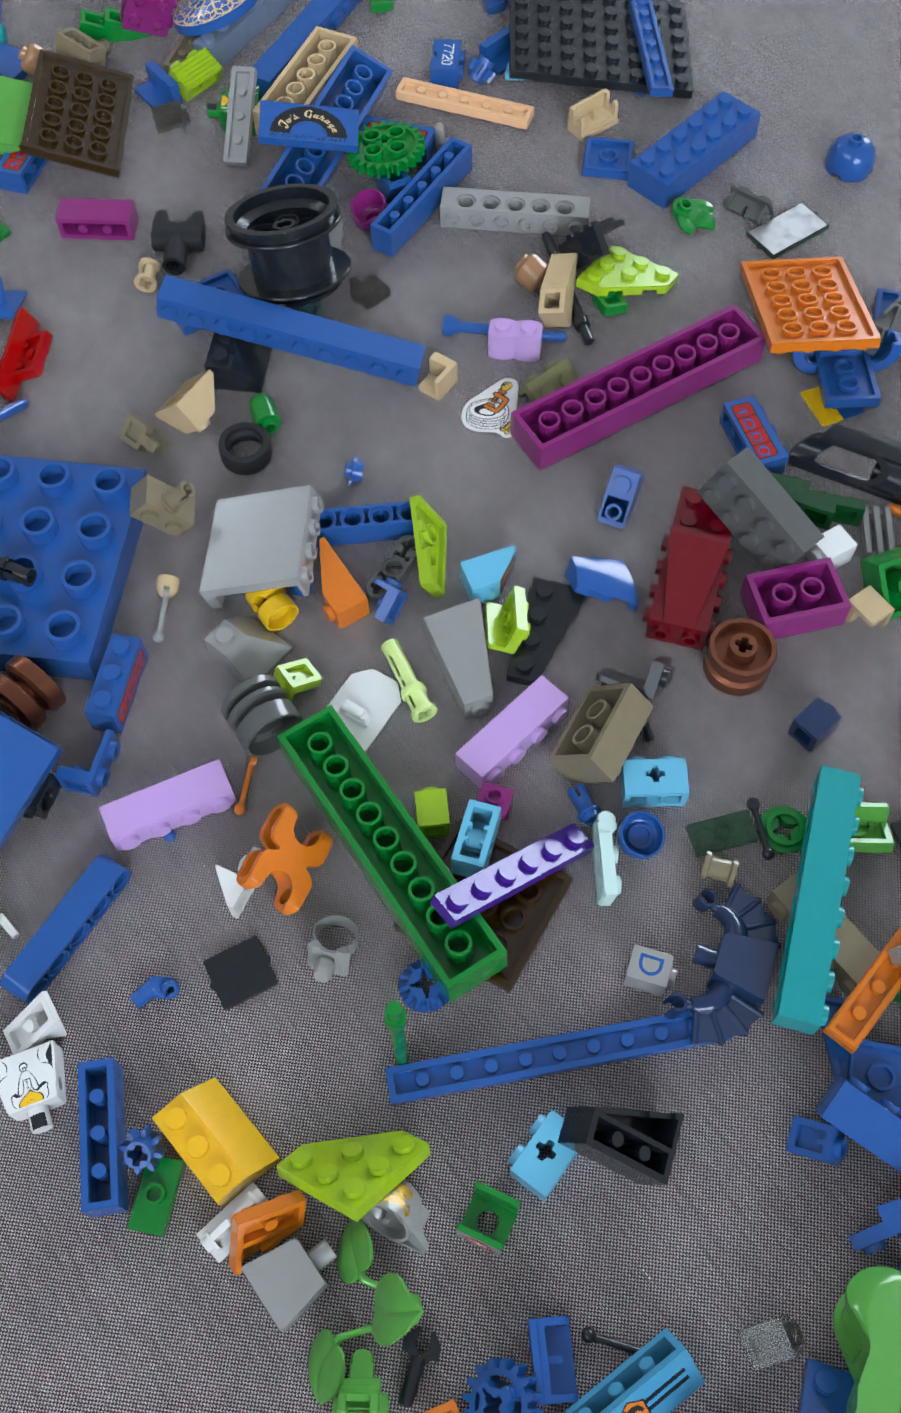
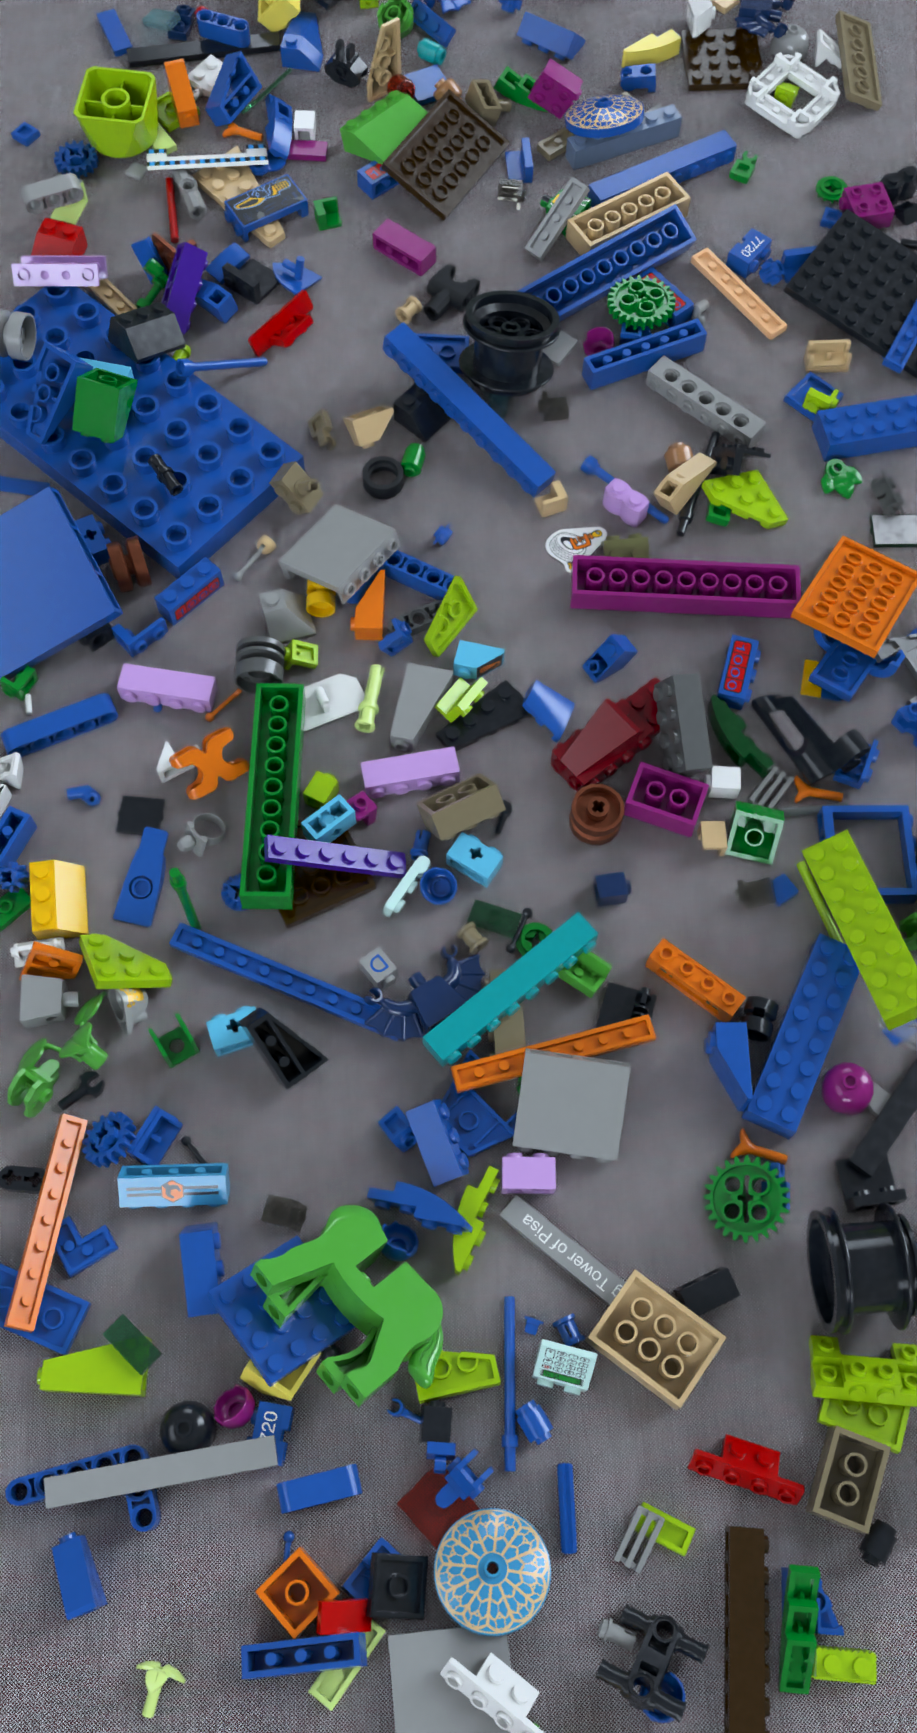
camera: 30 degrees right, 5 degrees up
(196, 73) = (553, 164): lime brick -> none
(302, 1047) = (144, 880): none -> blue piece
(308, 126) = (592, 256): blue tile -> none
(621, 154) = (818, 401): none -> lime bracket
(657, 679) = (522, 793): black bracket -> none

